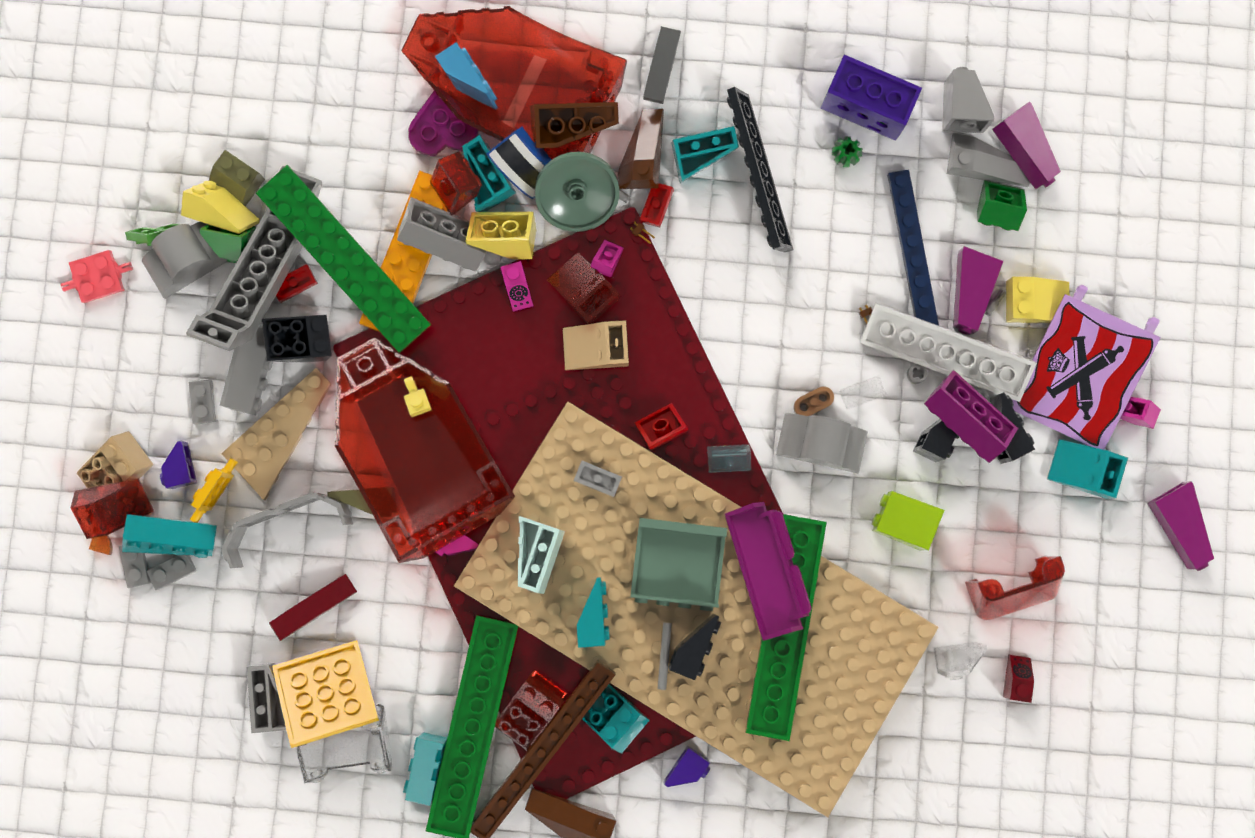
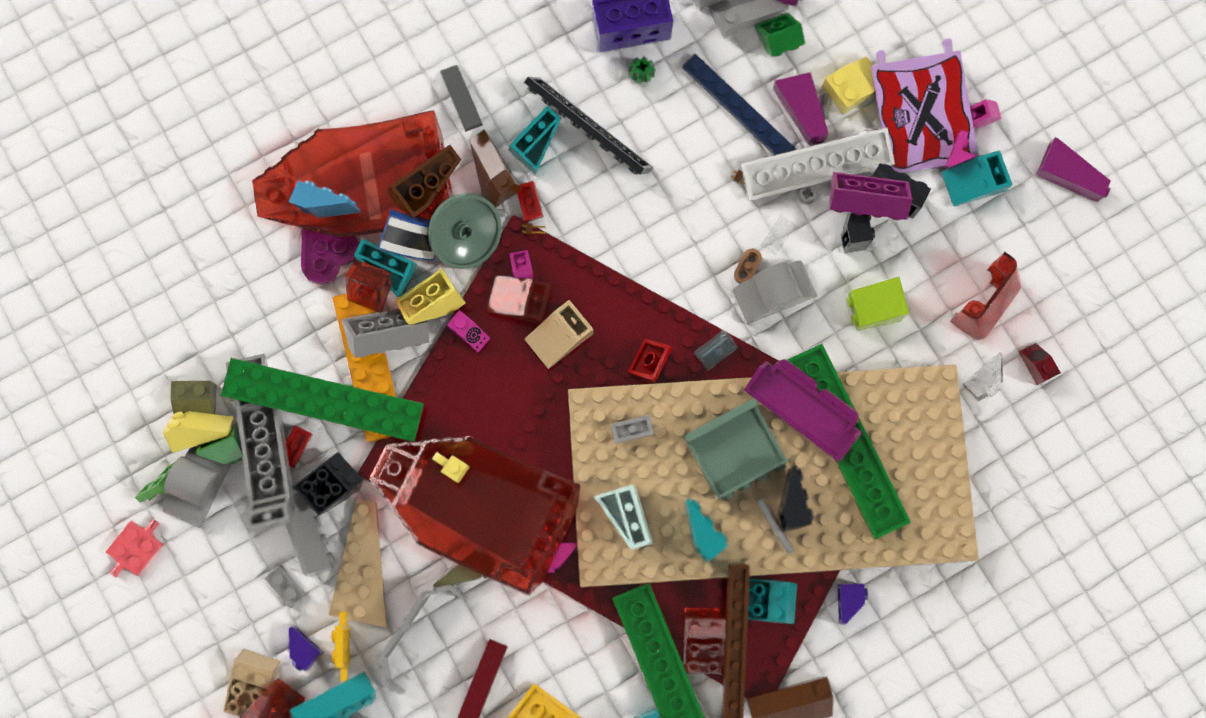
camera: 35 degrees left, 5 degrees down
(1084, 434) = (957, 155): none -> dark pink slope

